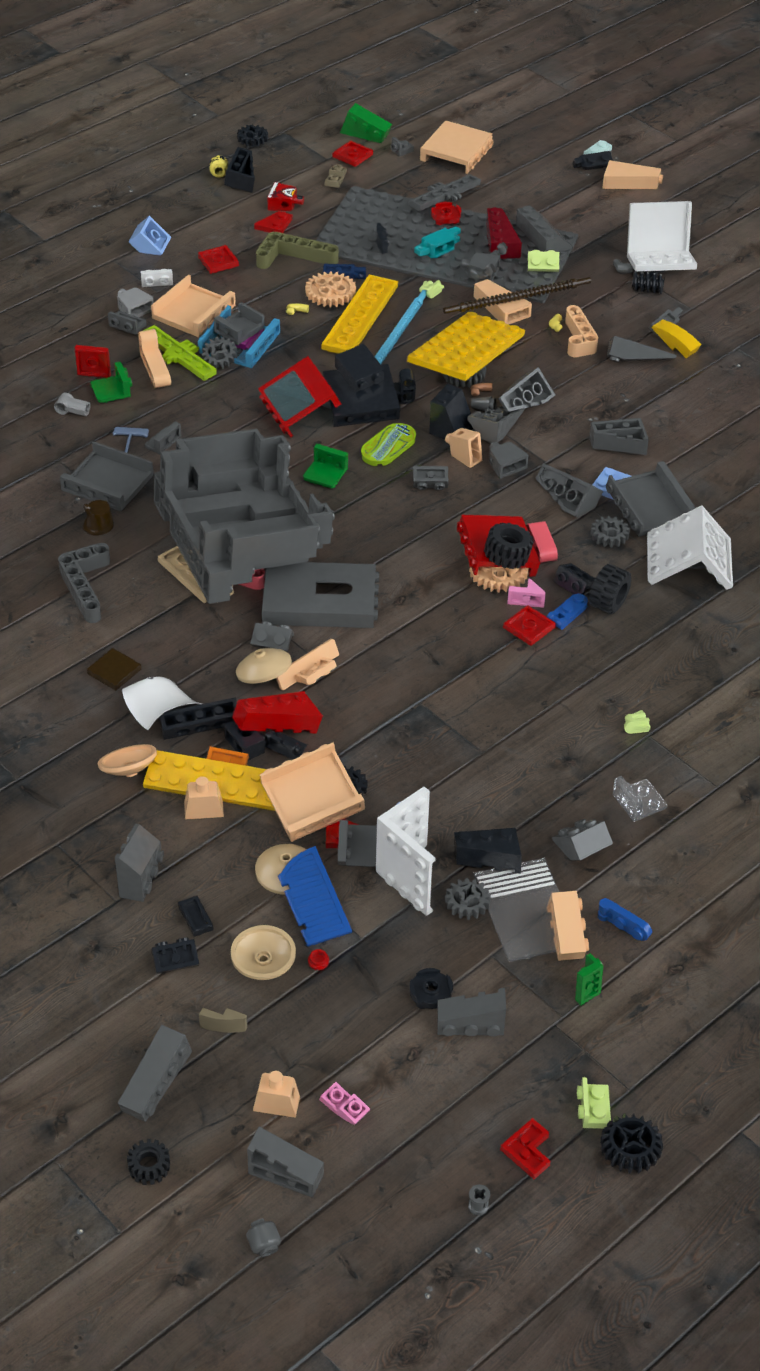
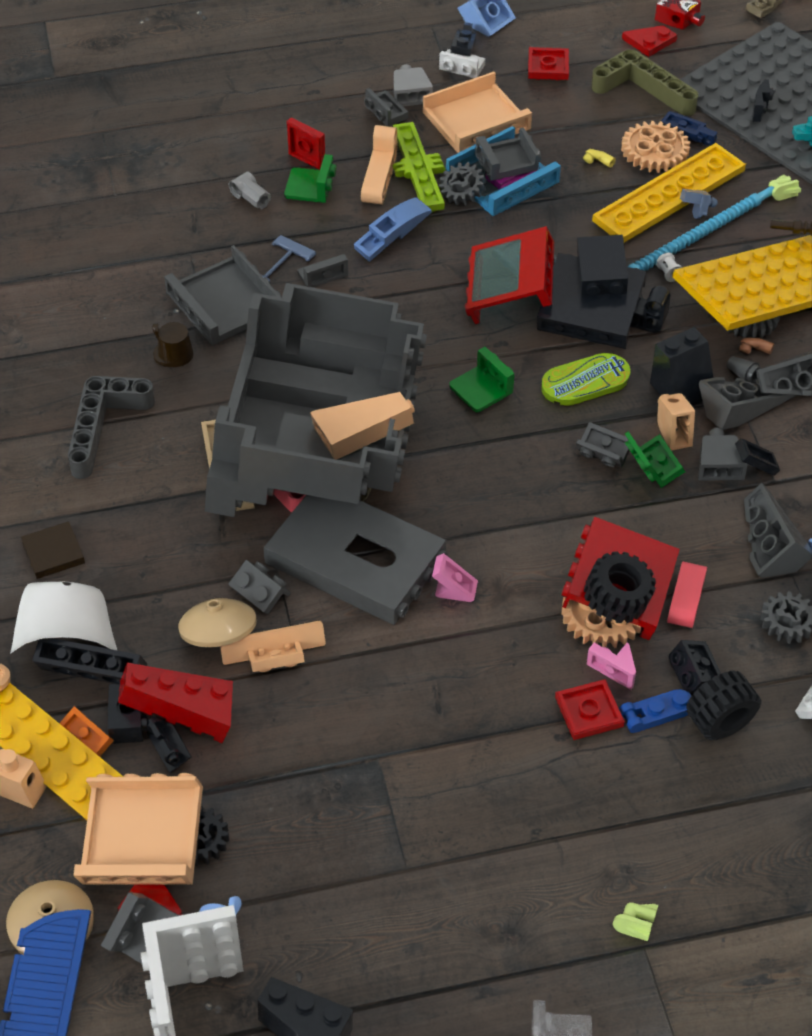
camera: 30 degrees right, 5 degrees up
(149, 261) = (464, 40): none -> black hinge
(192, 396) = (389, 226): none -> medium blue slope
(278, 510) = (361, 422): none -> light nougat slope
(386, 312) = (700, 199): none -> sand blue piece
(391, 361) = (669, 265): none -> white bush
(394, 587) = (453, 580): none -> bright pink slope
(468, 473) = (656, 459): none -> green bracket
(530, 449) = (757, 456): none -> black tile

